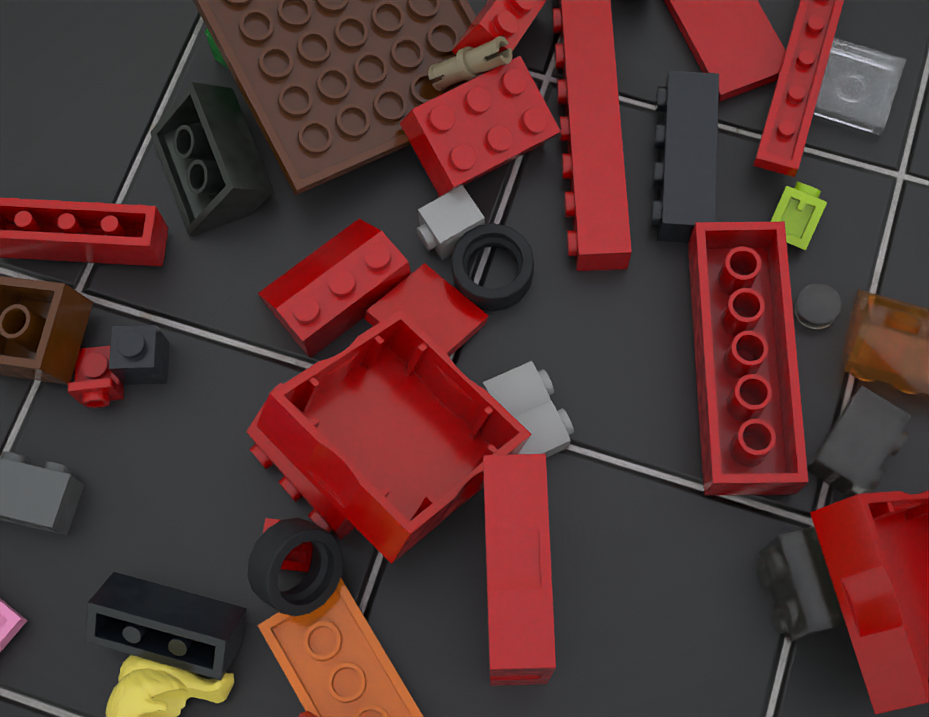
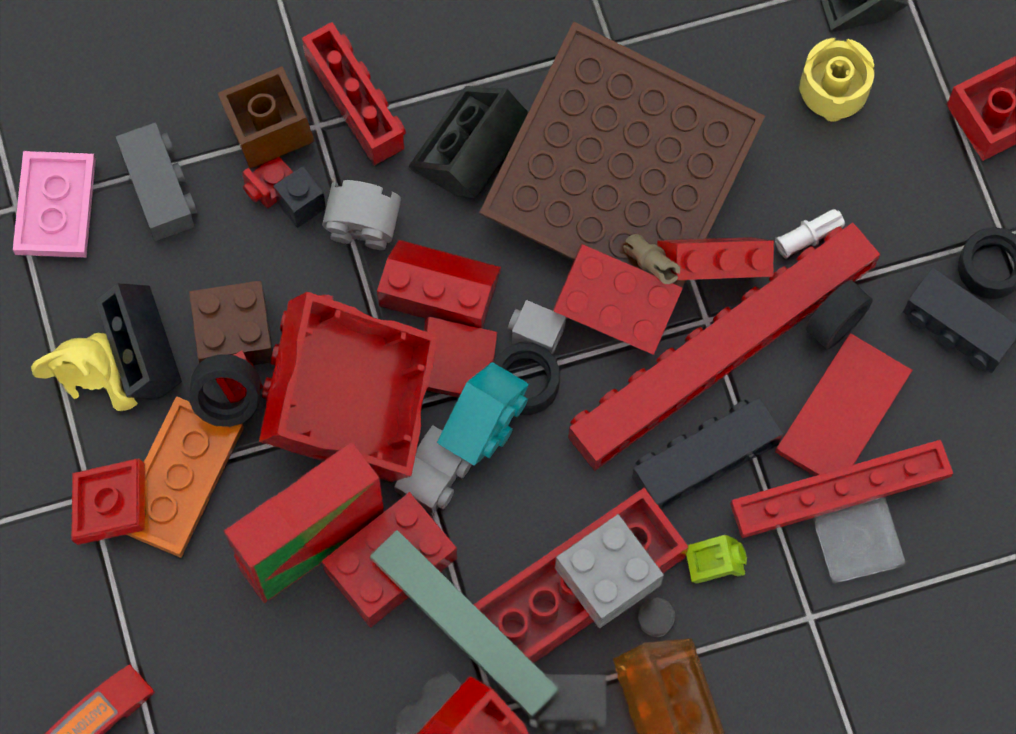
camera: 50 degrees right, 0 degrees up
(206, 304) = (361, 213): none -> light grey brick
(222, 512) = (232, 321): none -> reddish brown brick
(514, 321) = (484, 414): none -> teal brick
(597, 520) = (363, 581): none -> red brick
(730, 485) = (464, 623): none -> sand green tile
(774, 304) = (608, 571): none -> light grey brick

